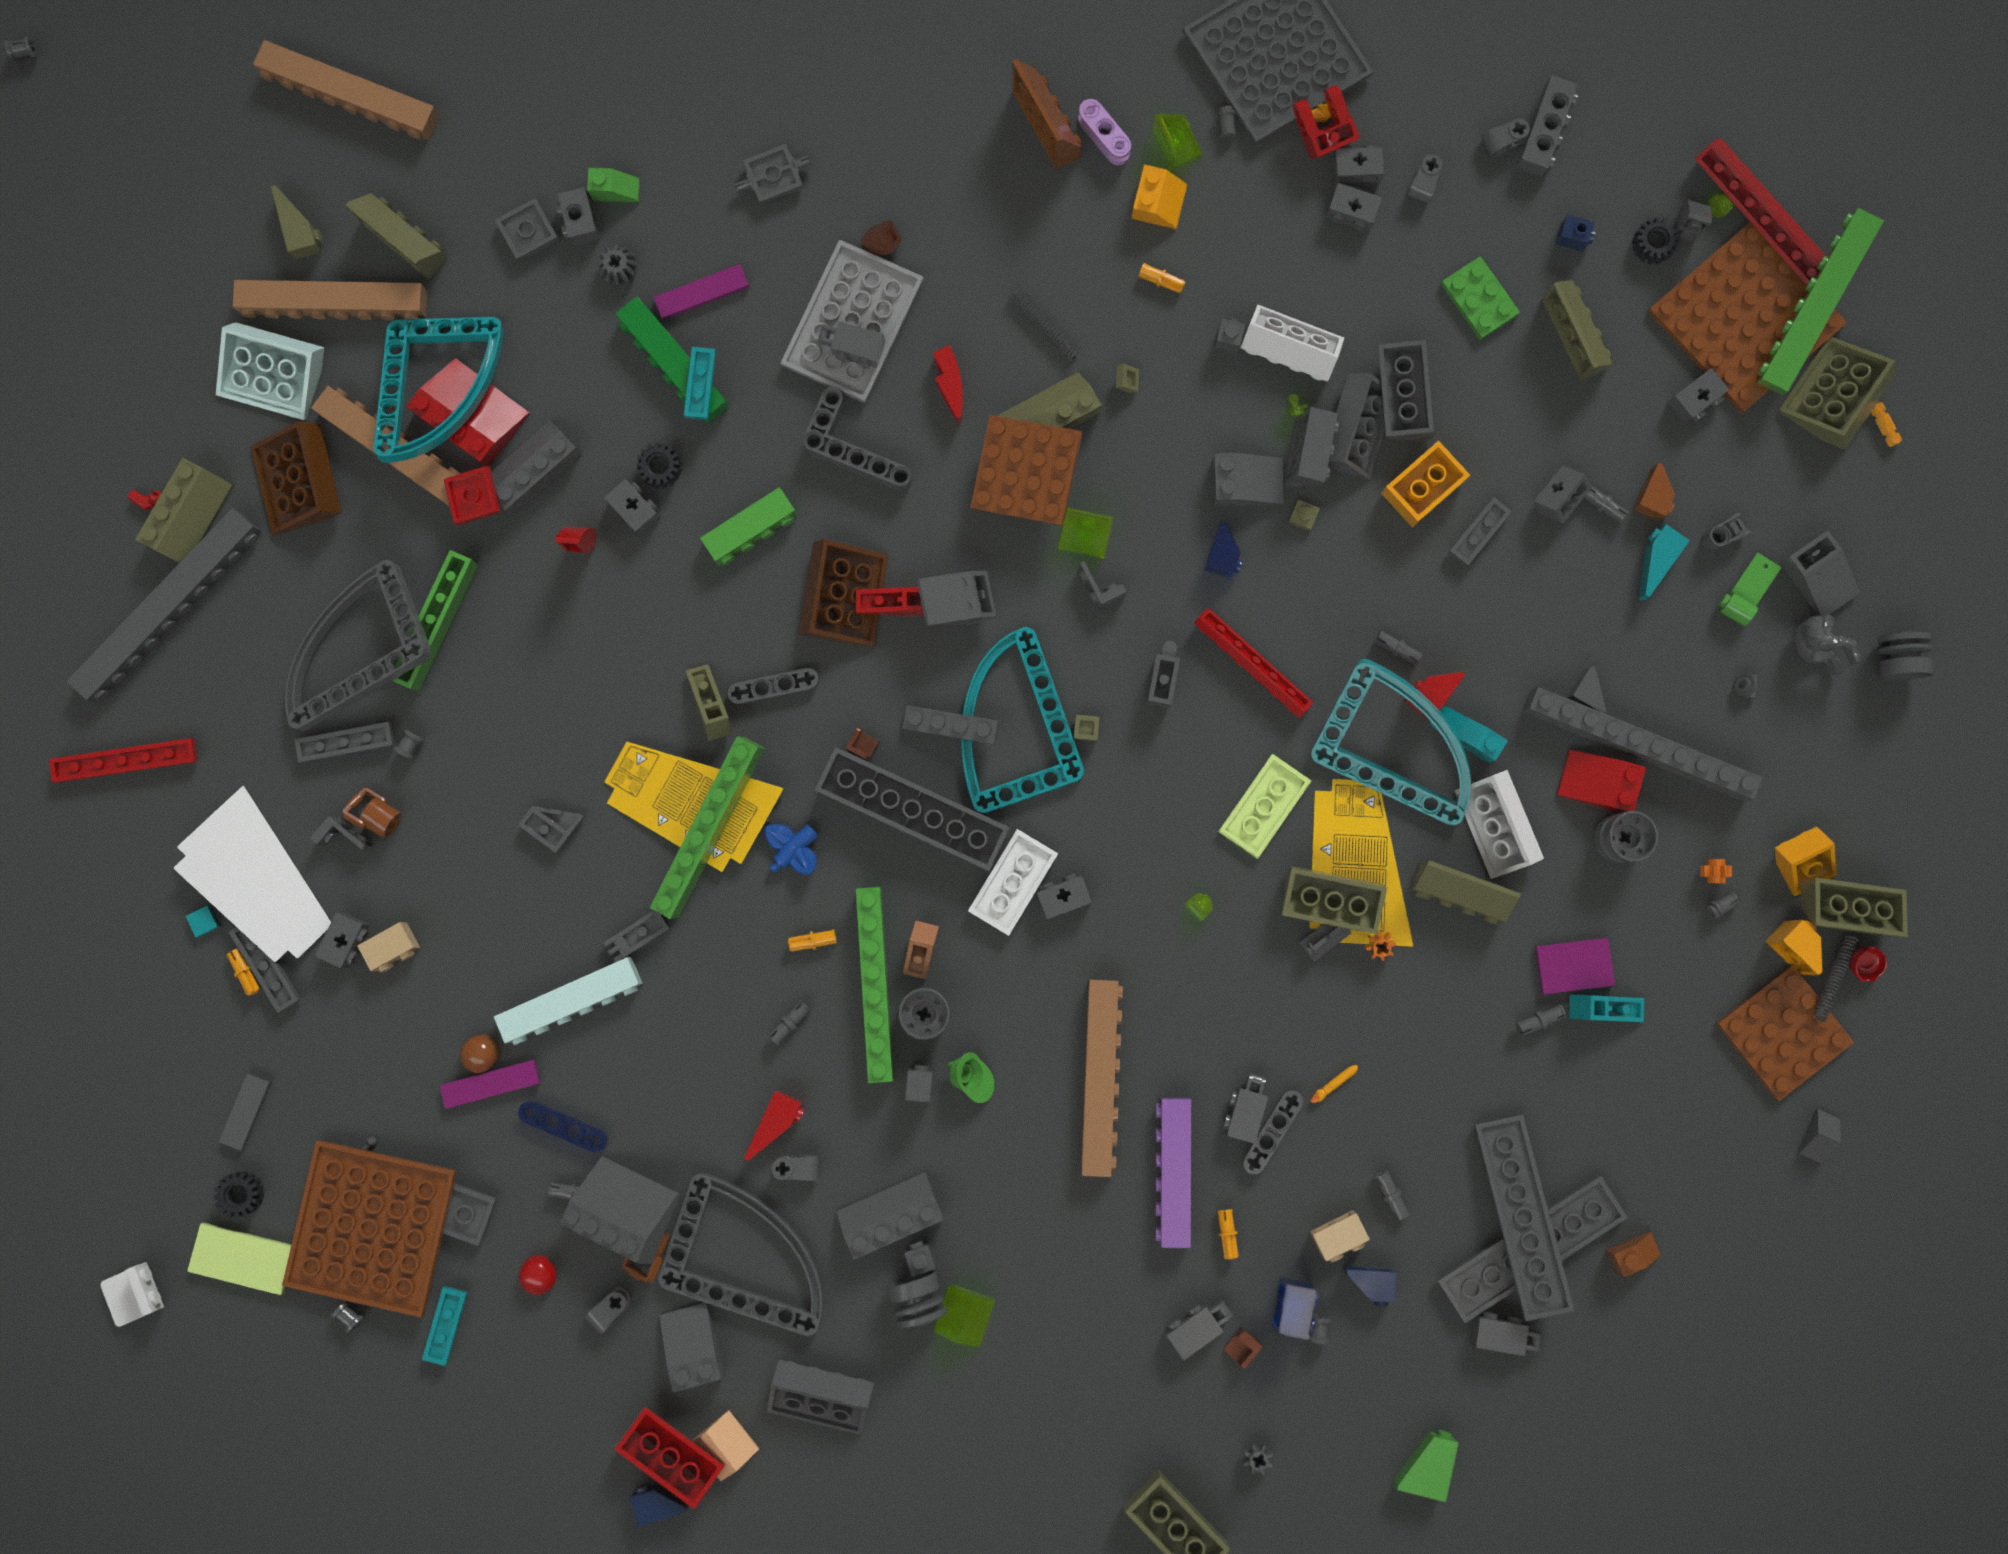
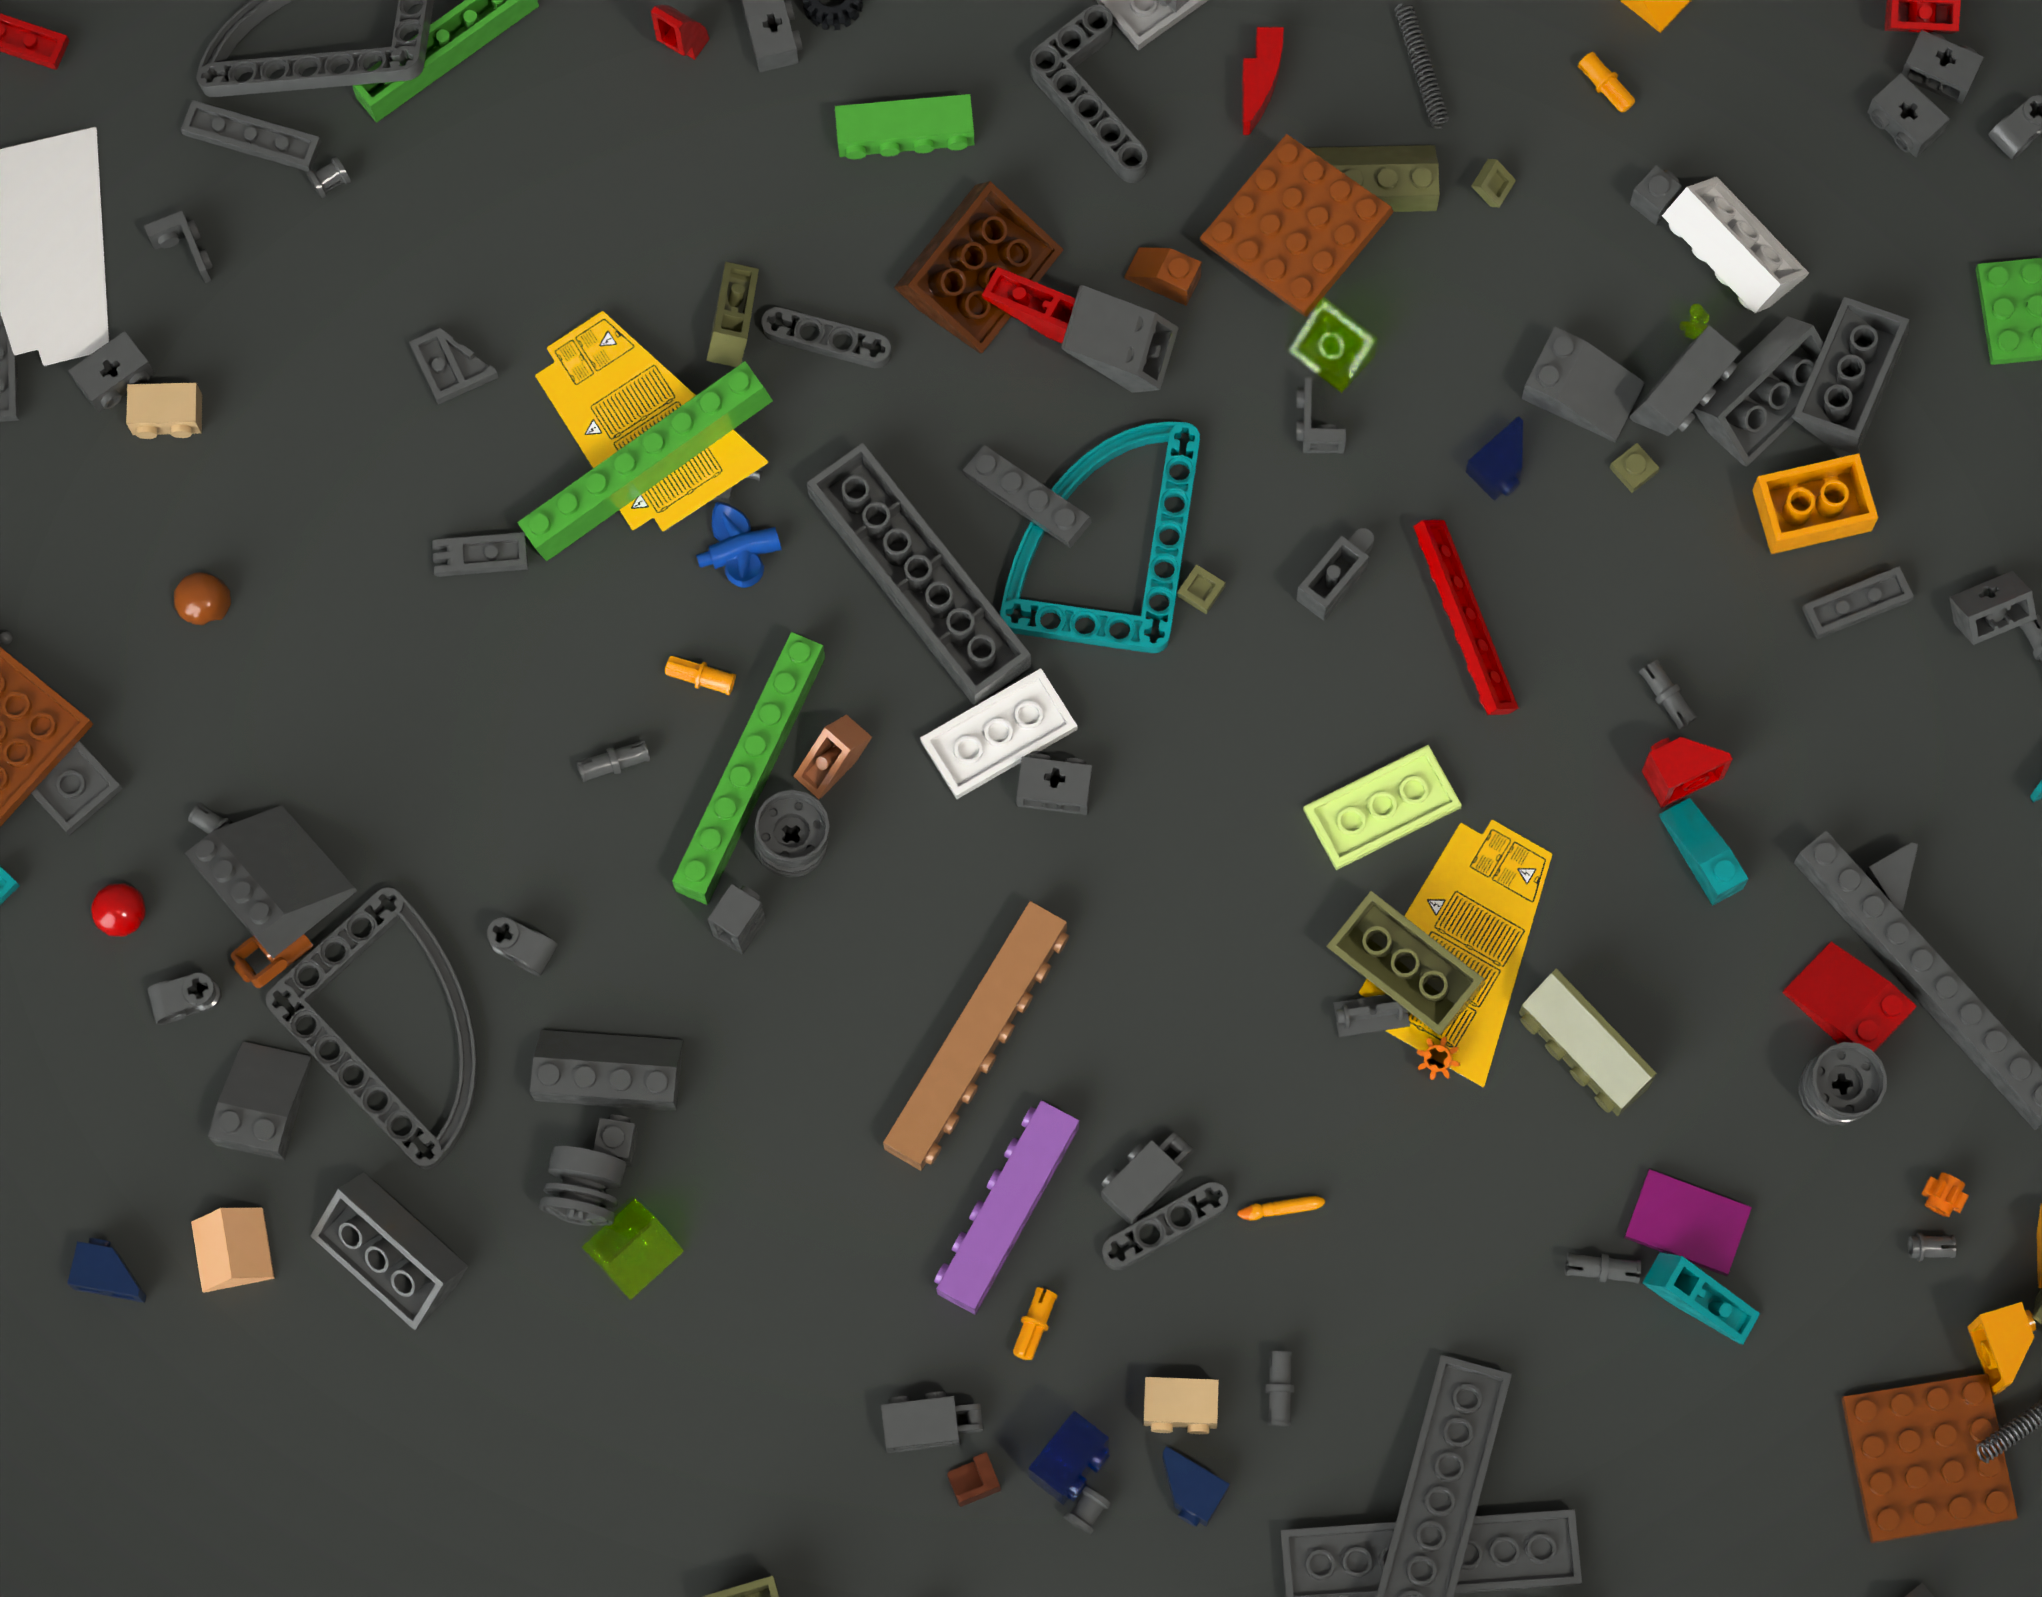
camera: 30 degrees right, 10 degrees down
(376, 816) = (238, 241): dark orange piece -> none
(490, 1084) = (193, 643): magenta tile -> none
(564, 1123) = (255, 742): clear blue beam -> none
(568, 1000) = (350, 589): light aqua brick -> none
(669, 1457) = (156, 1219): red slope -> none
(779, 1116) = (527, 874): red slope -> none
(862, 745) = (899, 462): copper panel -> none
(957, 538) = (1165, 272): none -> dark orange slope
(972, 1077) = (810, 947): bright green piece -> none
(1199, 905) = (1227, 888): clear neon green plate -> none
(1379, 772) = (1662, 790): teal beam -> none
(1501, 826) = (1682, 985): white slope -> none

